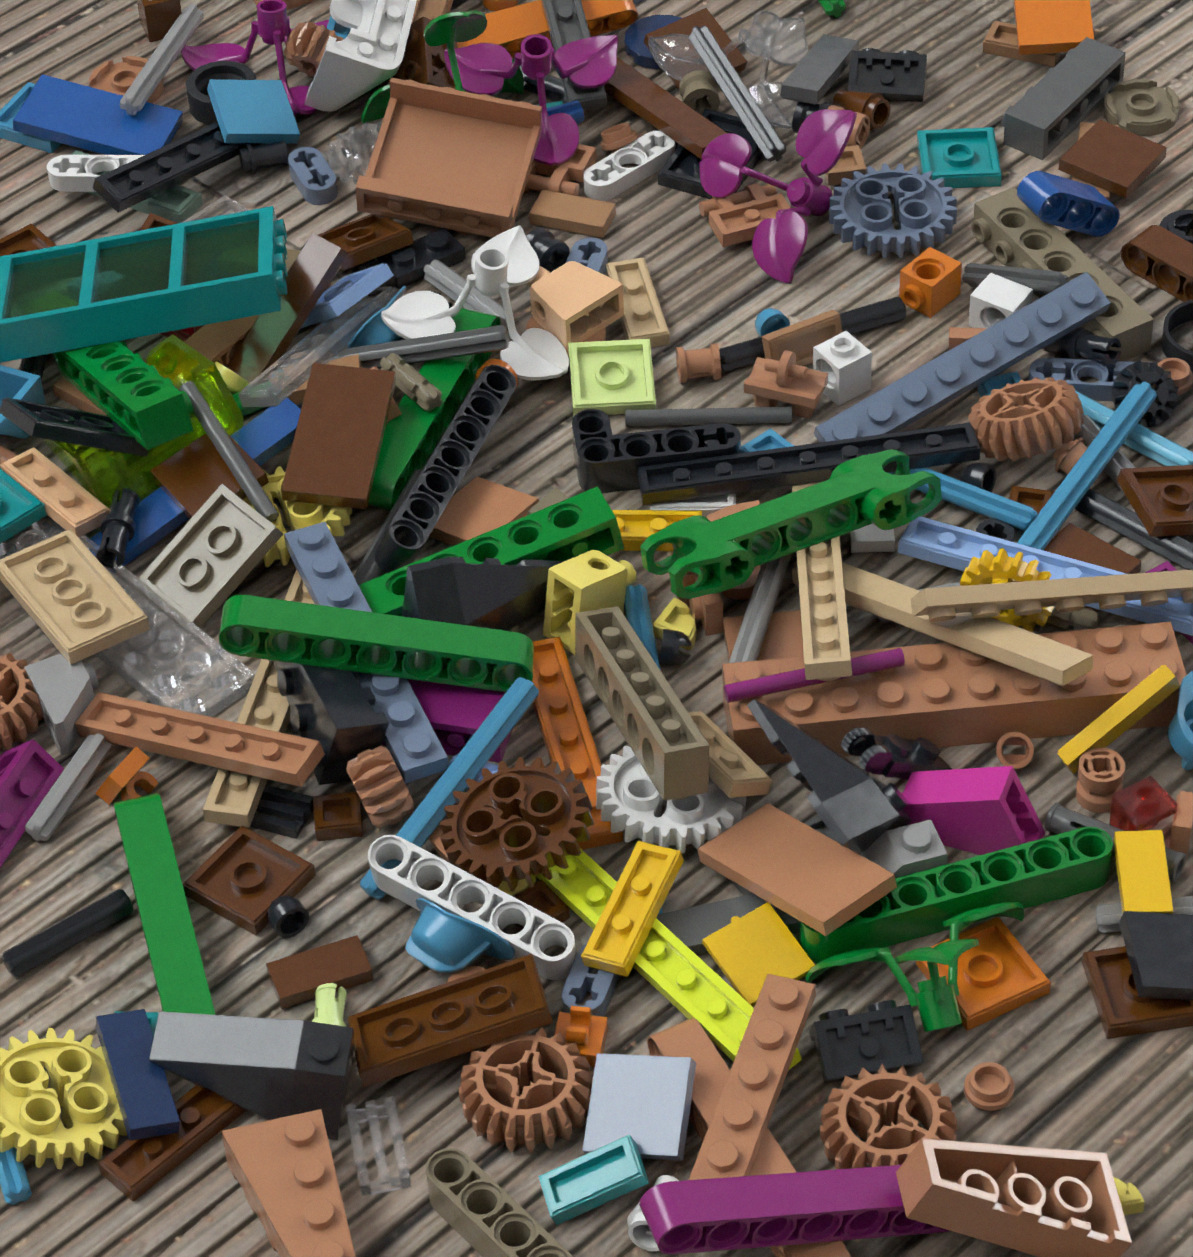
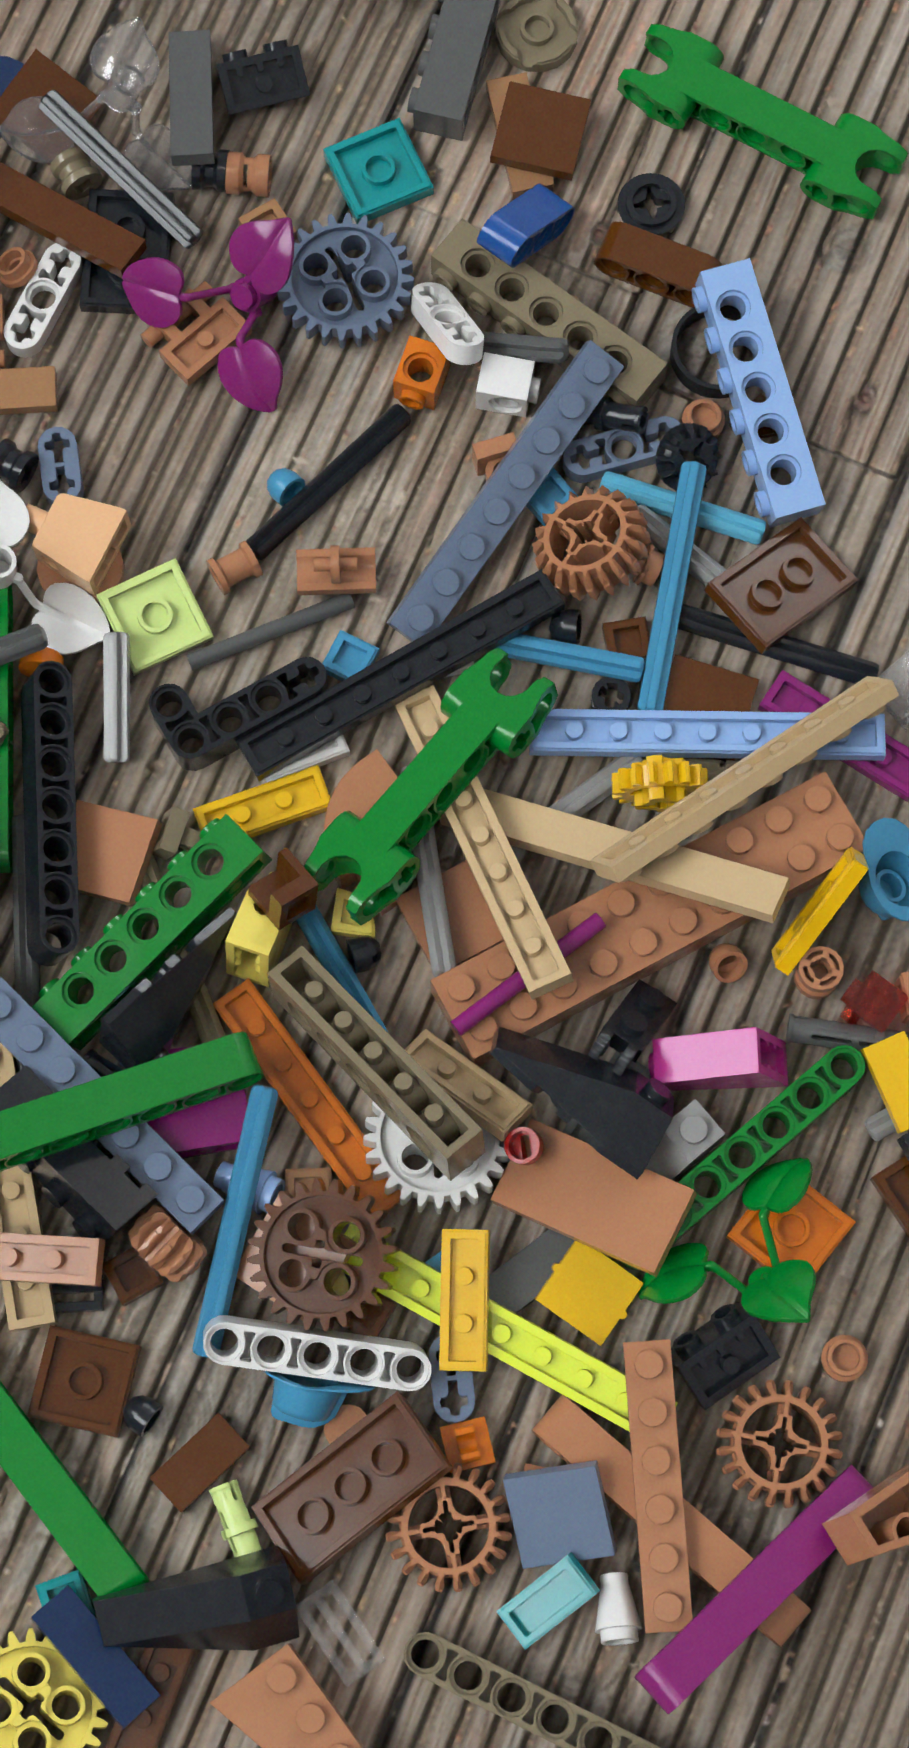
camera: 25 degrees left, 30 degrees up
(548, 415) = (116, 696): none -> light grey axle
(622, 554) = (285, 892): none -> reddish brown panel
(641, 306) = (130, 489): tan tile -> none
(741, 807) = (516, 1148): none -> red hinge
(802, 337) = (329, 505): medium nougat tile -> none
(847, 367) = (382, 526): white brick -> none
(866, 103) = (253, 134): reddish brown cone -> none
(967, 248) = (447, 323): none -> white beam

